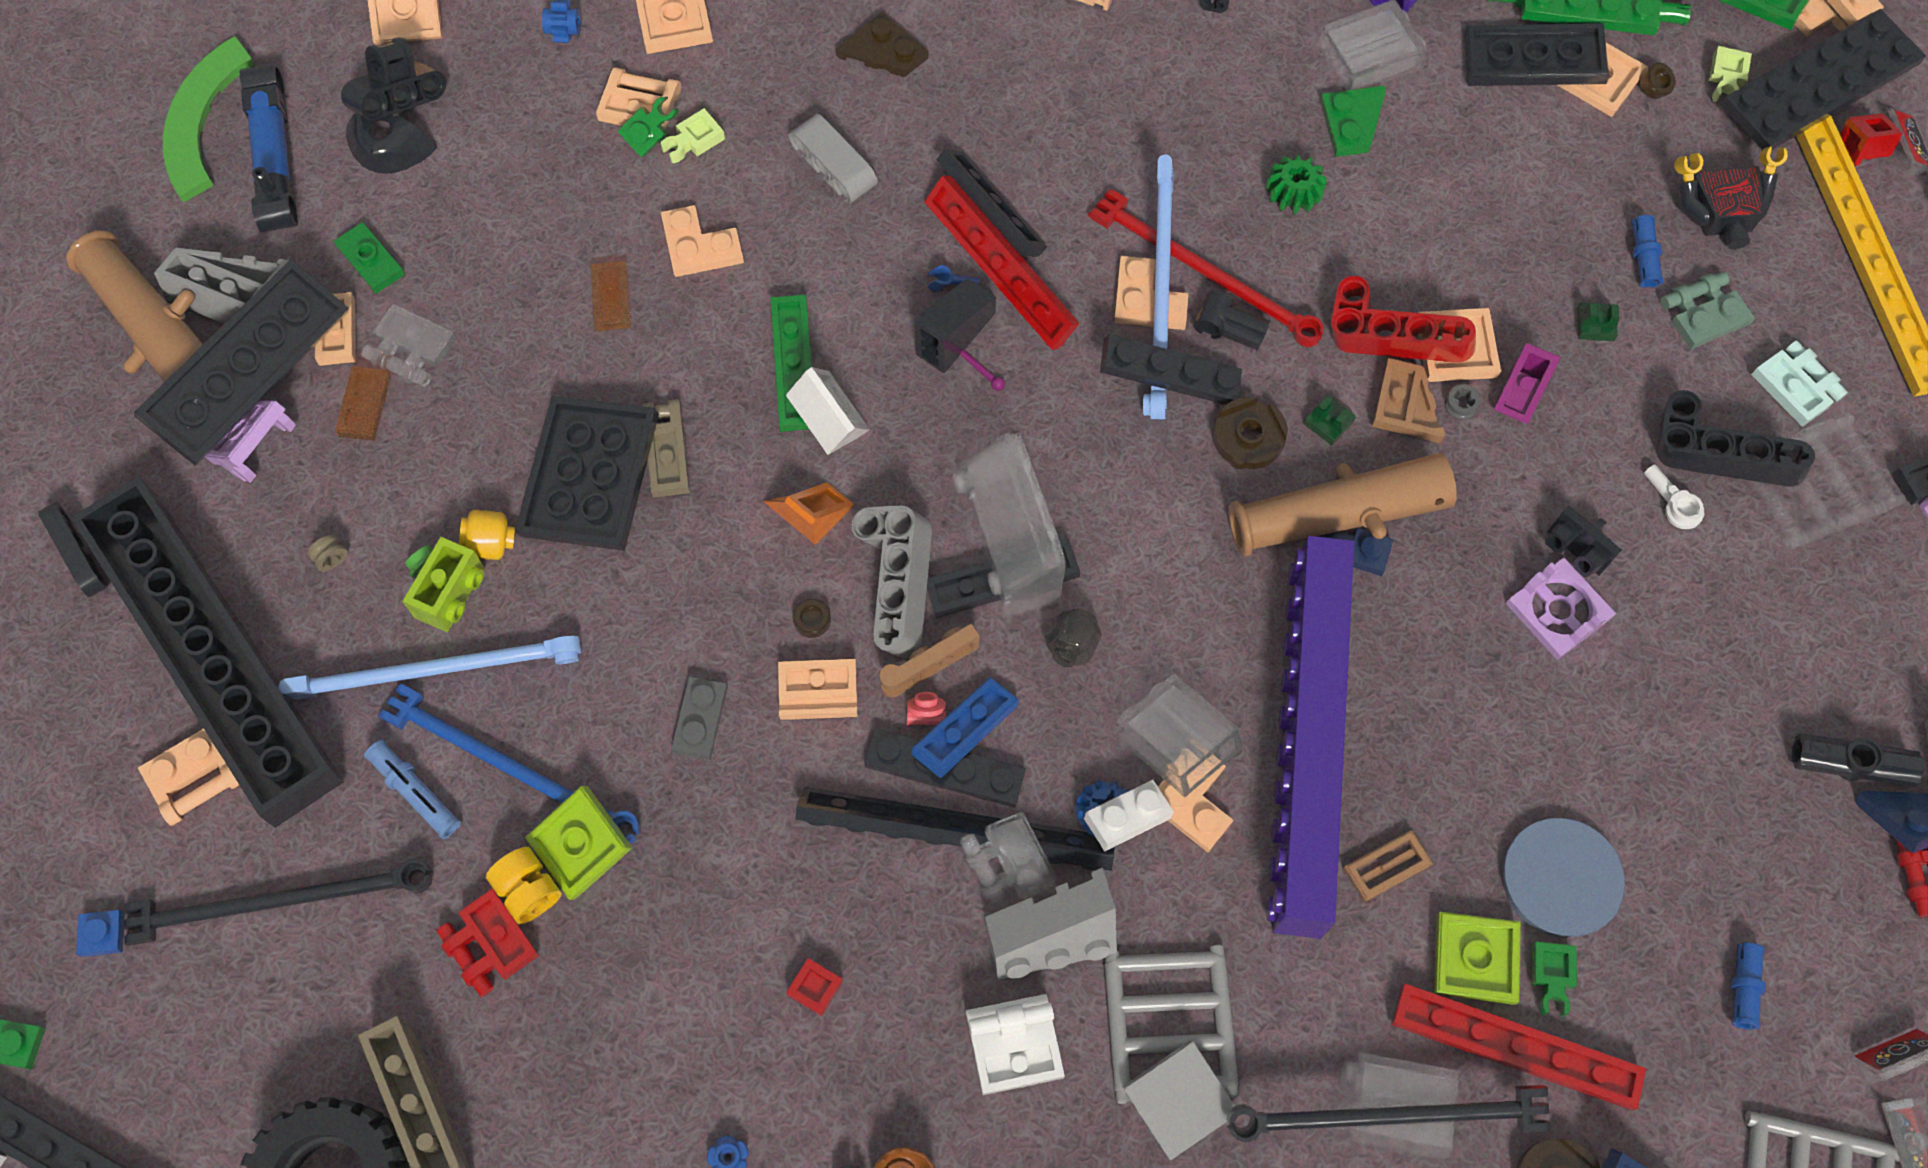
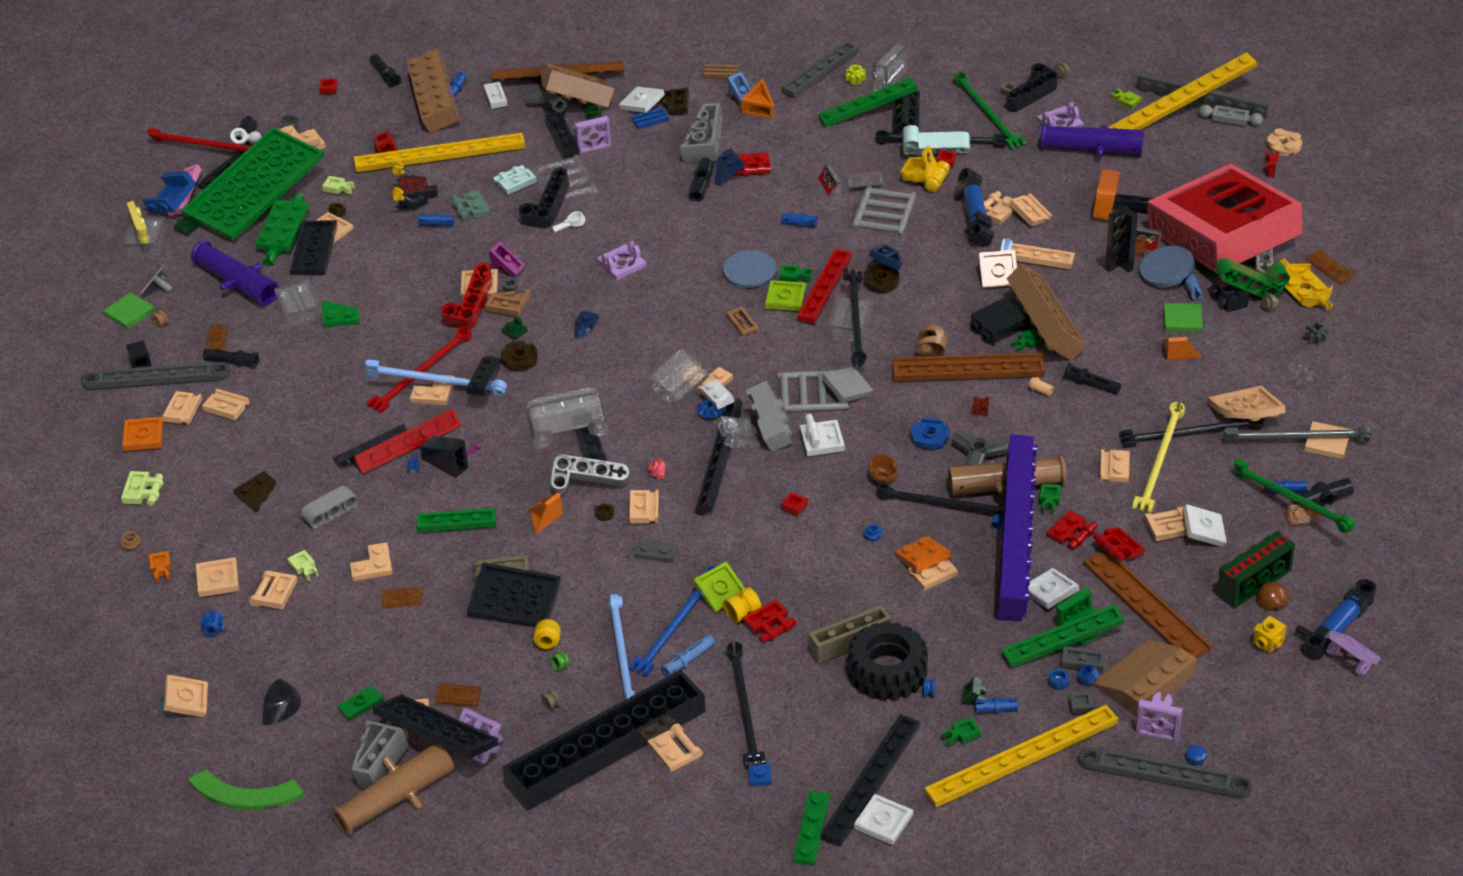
camera: 85 degrees left, 25 degrees down
(70, 548) = (548, 805): black beam -> none
(266, 114) = (249, 756): black piece -> none
(392, 82) = (249, 685): black piece -> none
(413, 335) = (417, 676): clear plate -> none
(444, 585) = (577, 643): lime brick -> none
(645, 128) = (297, 581): green plate -> none
(826, 410) = (491, 495): white slope -> none
(929, 661) = (634, 465): medium nougat plate -> none
(965, 727) = (668, 452): blue tile -> none
(970, 776) = (687, 463): black plate -> none
(1074, 638) = (625, 414): clear smoke head -> none
(1223, 318) = (454, 361): black piece -> none
(1296, 184) = (377, 333): green gear -> none
(1312, 739) = (672, 330): dark purple brick -> none
(1346, 503) = (563, 321): medium nougat piece -> none
(1583, 540) = (590, 249): black hips -> none
(1597, 321) = (471, 238): dark green tile -> none
(1823, 80) = (352, 153): black plate -> none

